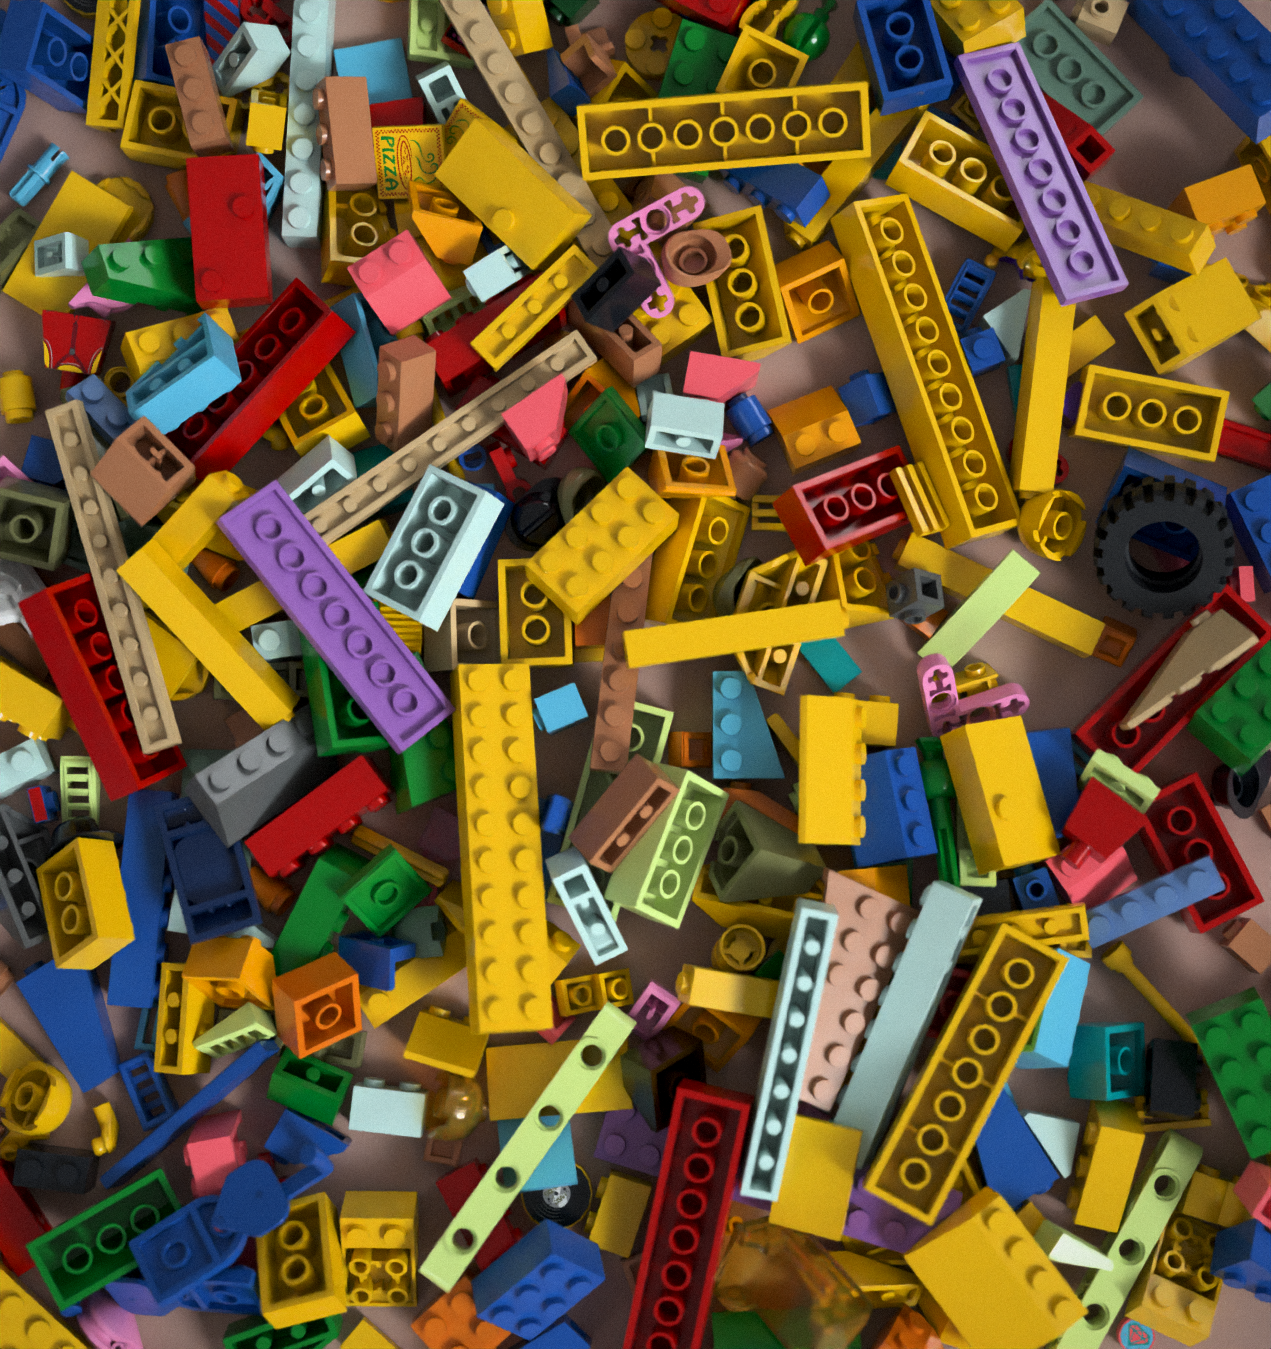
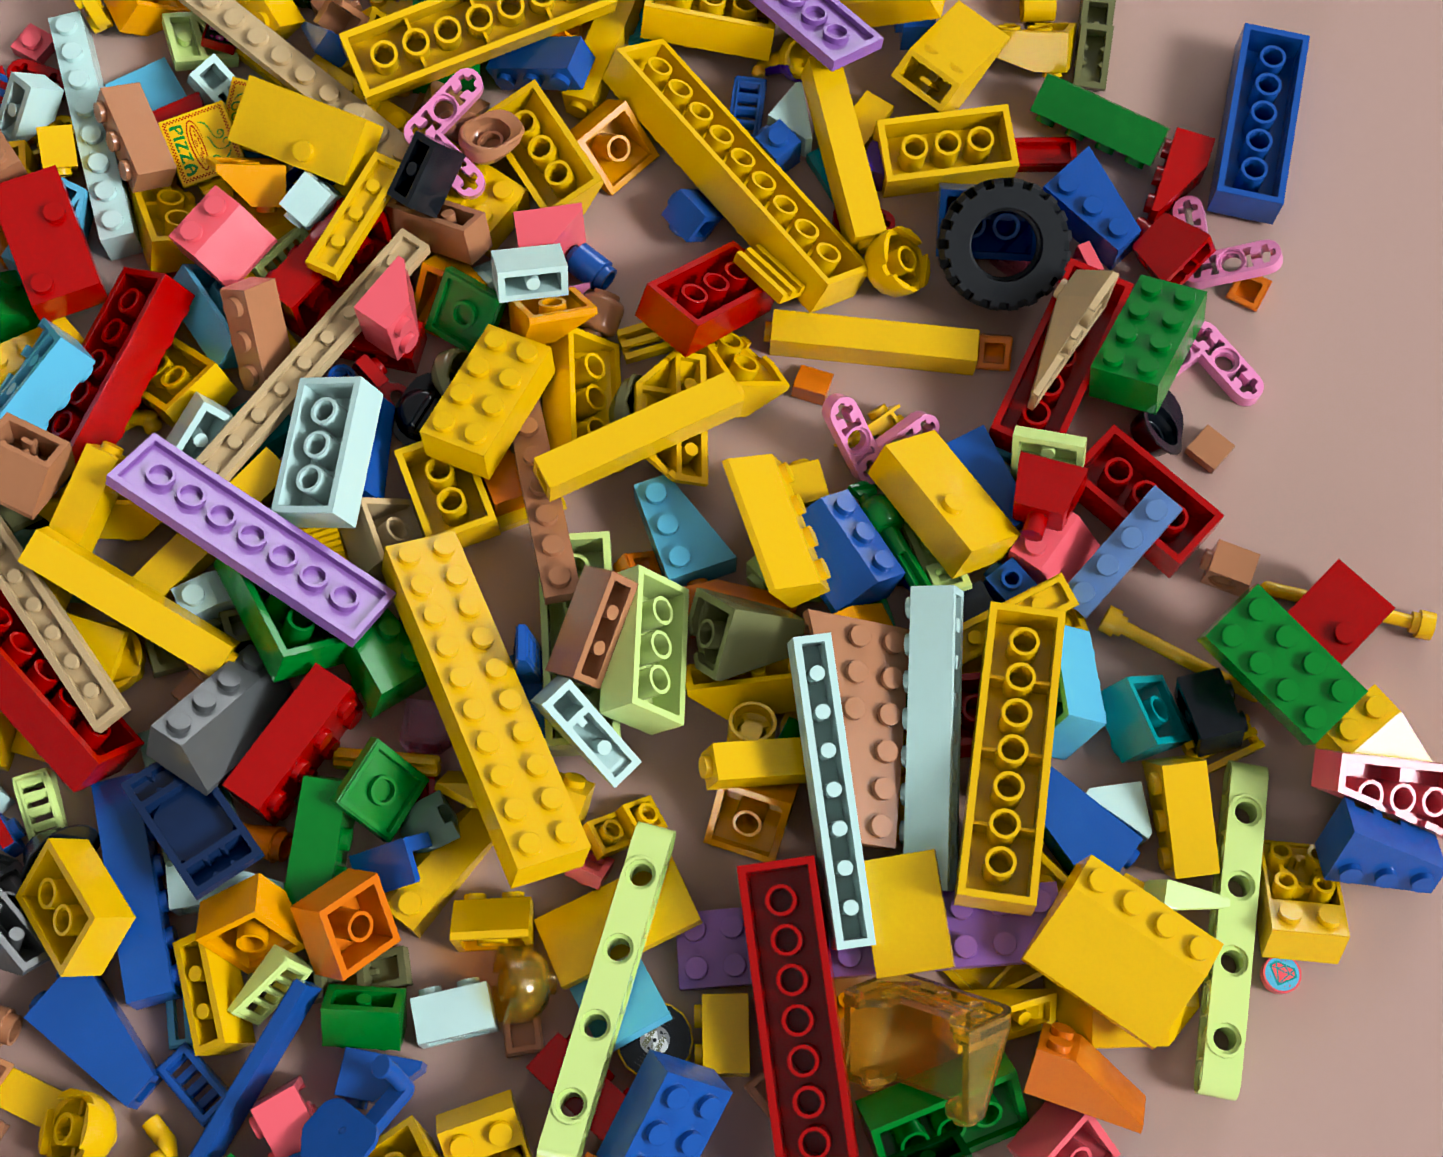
camera: 25 degrees left, 15 degrees down
(216, 569) = (122, 554): orange cone -> none
(560, 710) = (500, 568): medium azure brick -> none
(653, 1009) = (689, 819): bright pink slope -> none
(656, 1070) = (710, 875): dark brown slope -> none
(784, 736) = (729, 530): yellow tile -> none
(814, 430) = (651, 254): light orange slope -> none
(830, 662) = (731, 442): teal tile -> none
(914, 595) = (796, 358): dark grey brick -> none
(981, 608) = (864, 344): yellowish green slope -> none
(1213, 1198) = (1297, 811): yellow brick -> none

